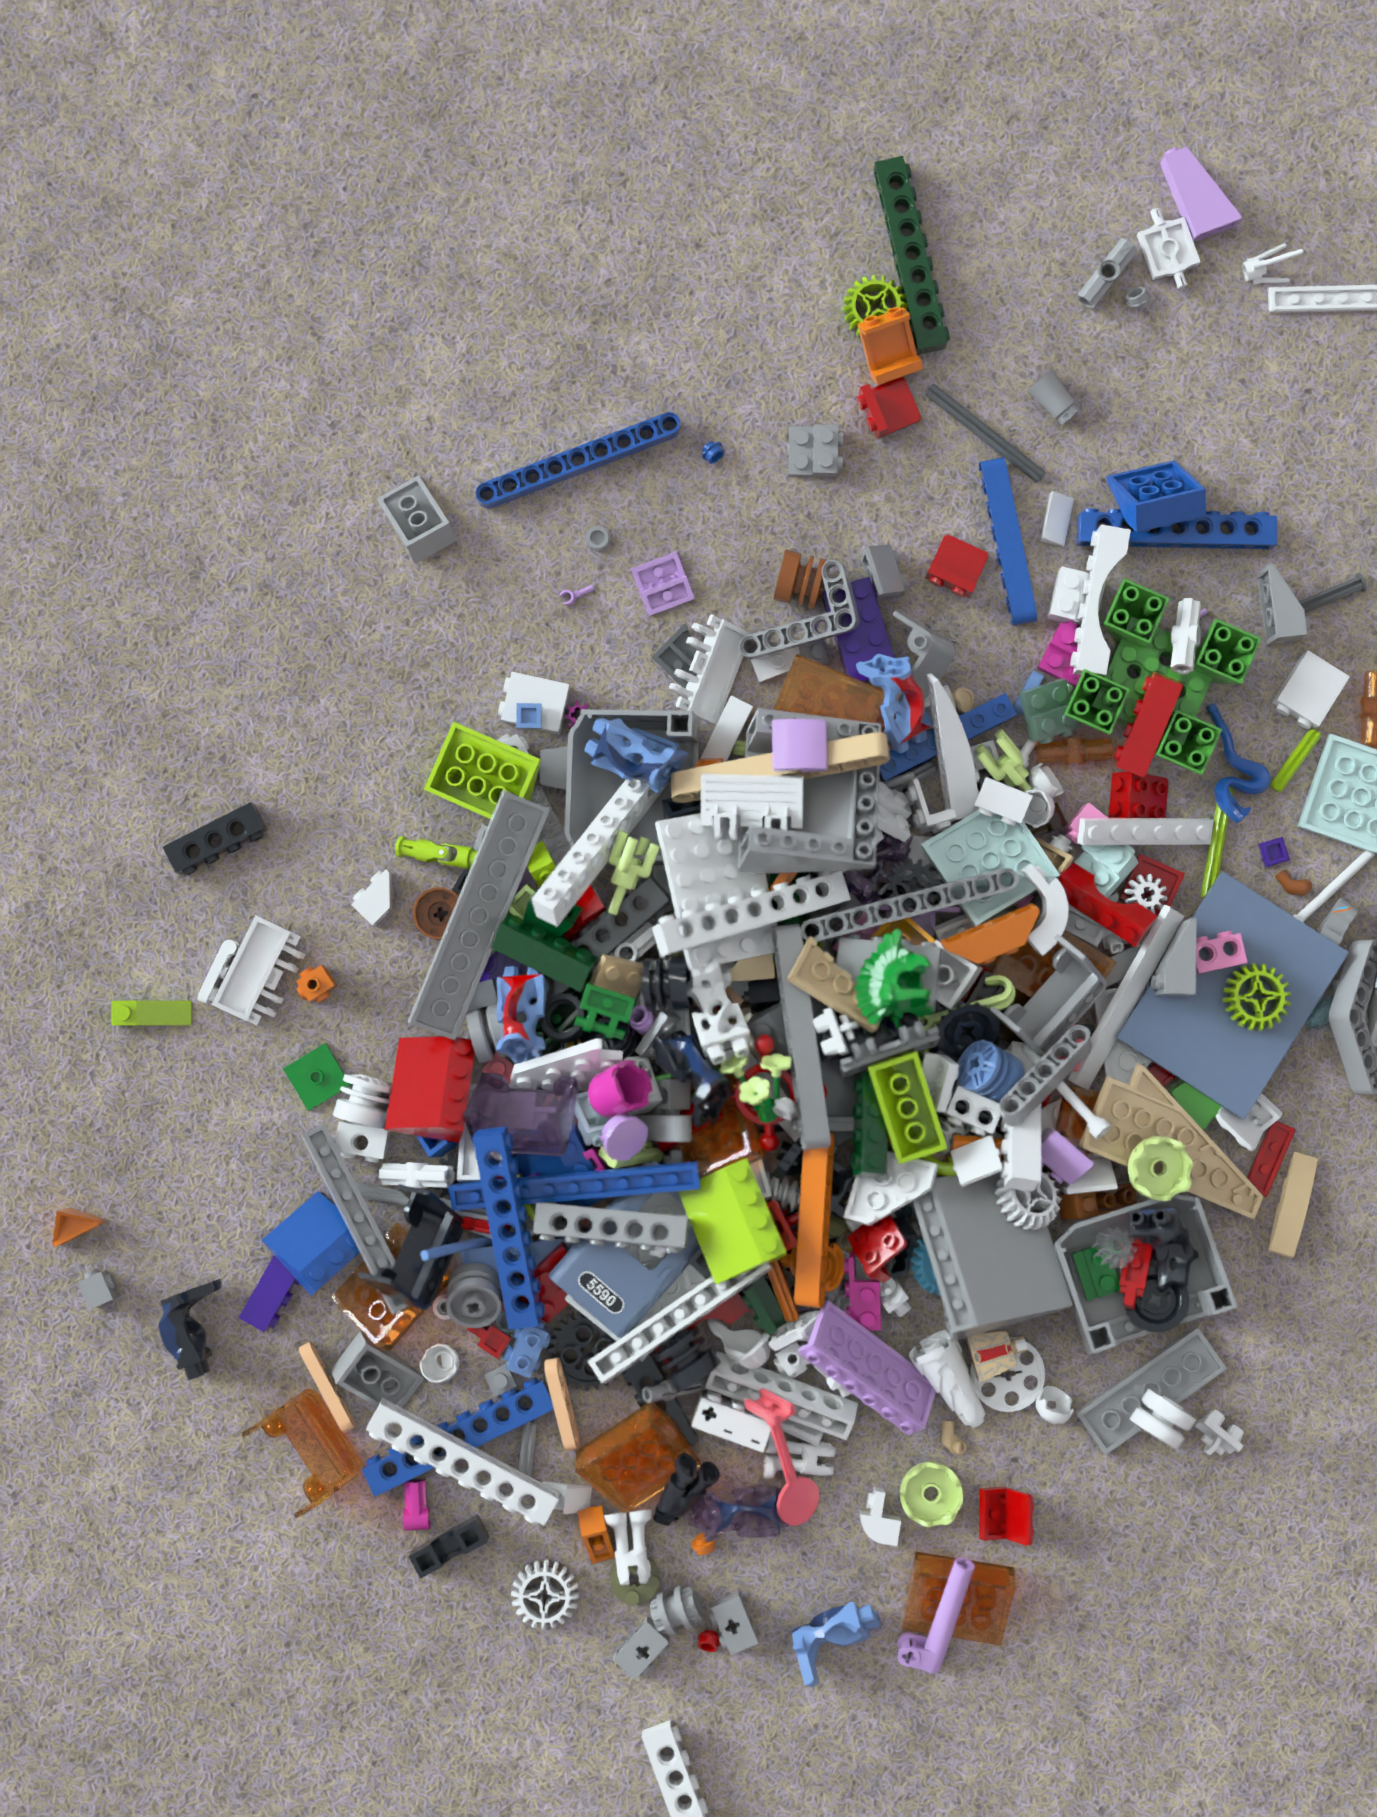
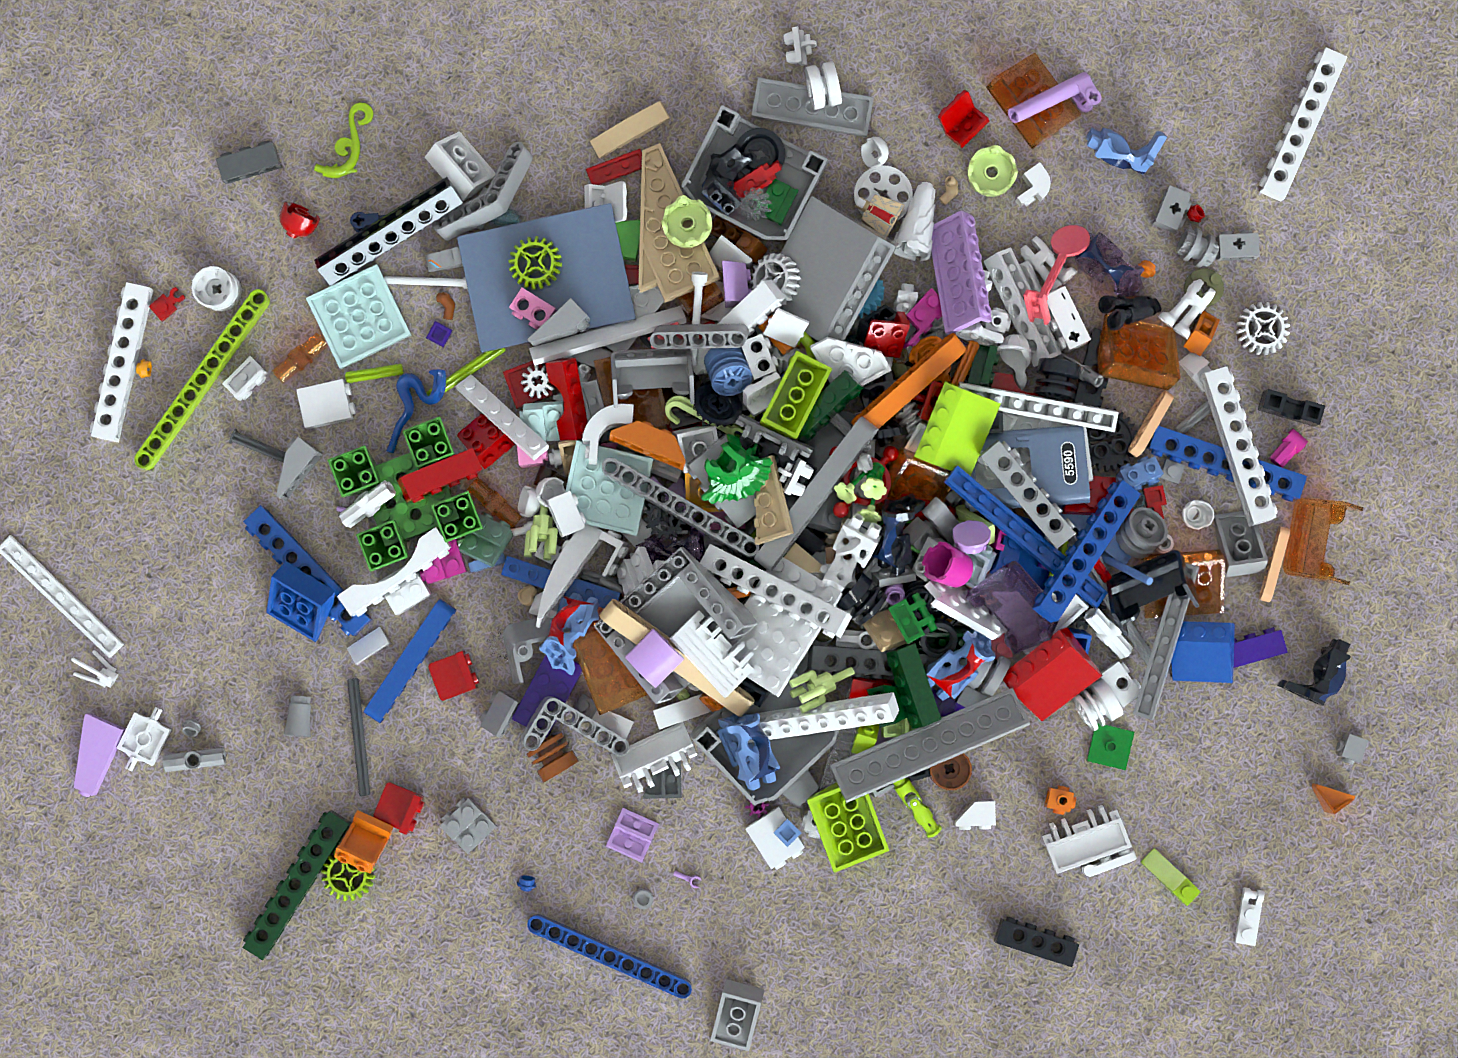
camera: 140 degrees left, 0 degrees up
(47, 1046) = (1249, 917): none -> white plate

